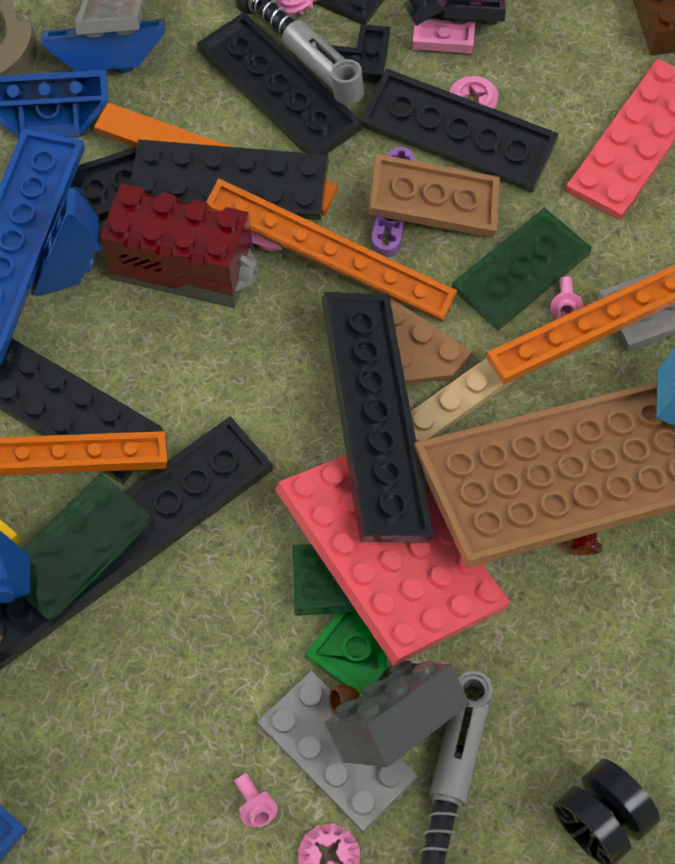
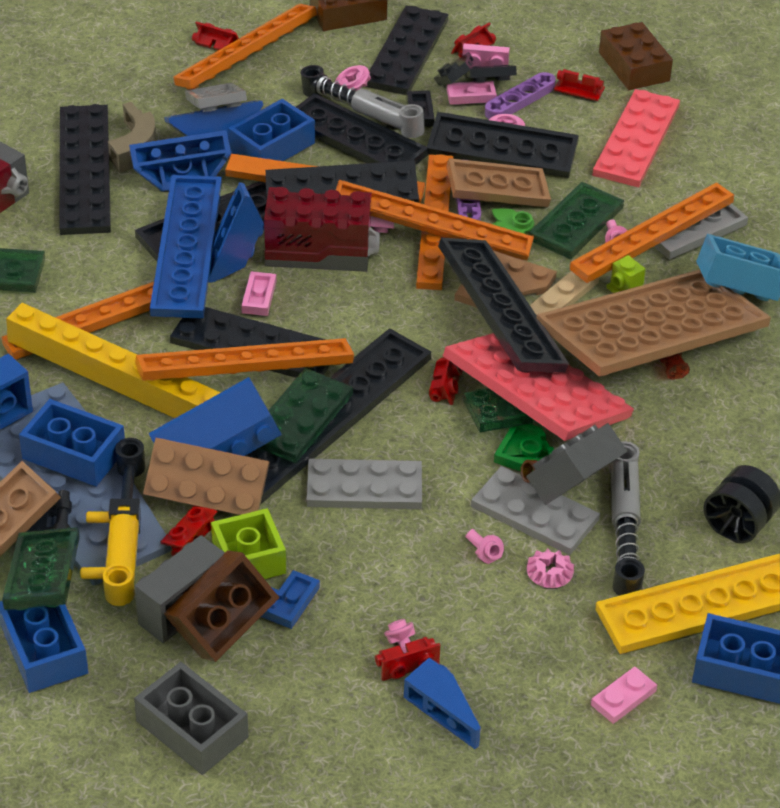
camera: 15 degrees left, 20 degrees down
(86, 328) = (259, 293): none -> bright pink plate
(132, 665) = (364, 484): none -> light grey plate
(169, 75) = (273, 132): none -> blue brick
(276, 522) = (445, 381): none -> red hinge
(347, 221) = (436, 195): none -> orange plate
(433, 255) = (513, 220): none -> bright green plate
(508, 52) = (540, 86): none -> medium lavender beam
(559, 381) = (626, 275): none -> lime brick
(589, 47) = (588, 88): none -> red hinge

